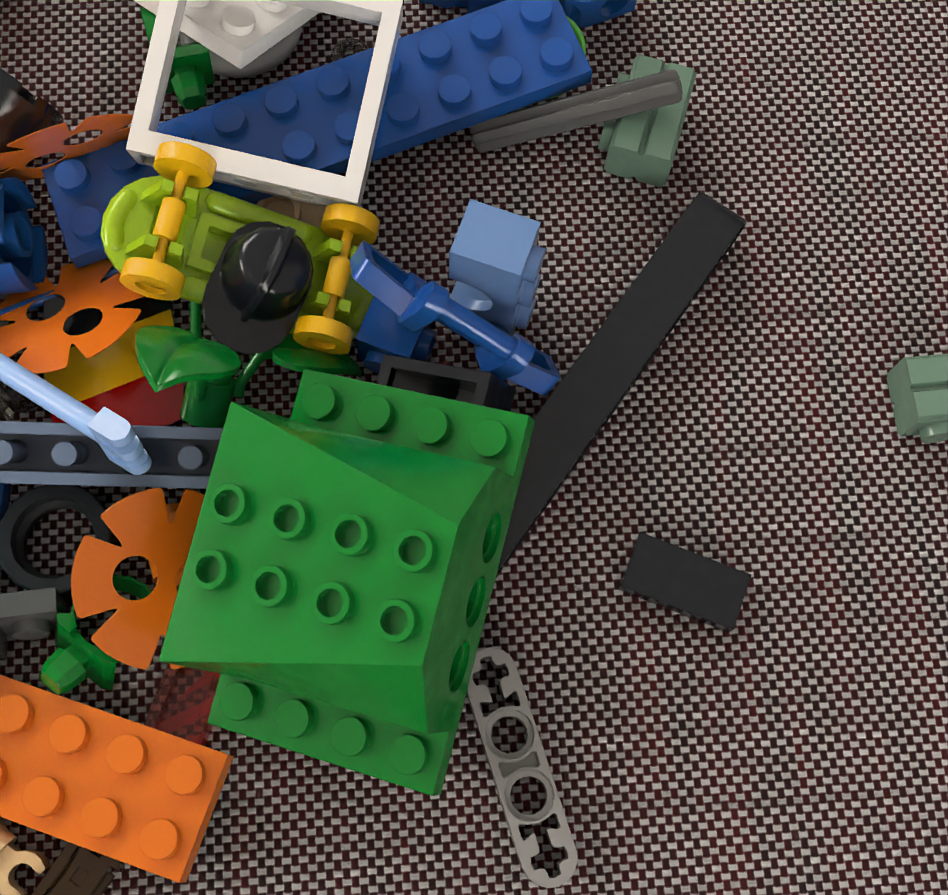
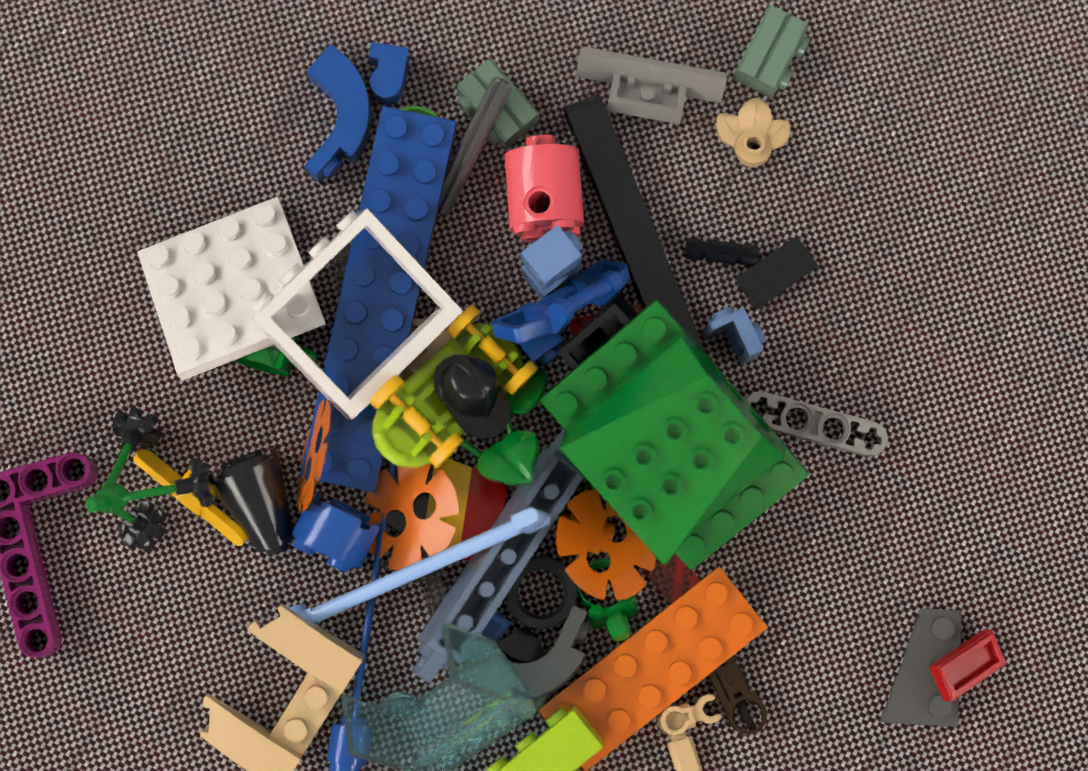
camera: 55 degrees left, 10 degrees up
(574, 549) = (742, 334): none -> medium blue bracket
(591, 220) = (543, 176): none -> coral cylinder
(662, 494) = (721, 251): none -> black axle
(805, 276) = (649, 86): none -> light grey bracket
(840, 438) = (752, 127): none -> tan plate

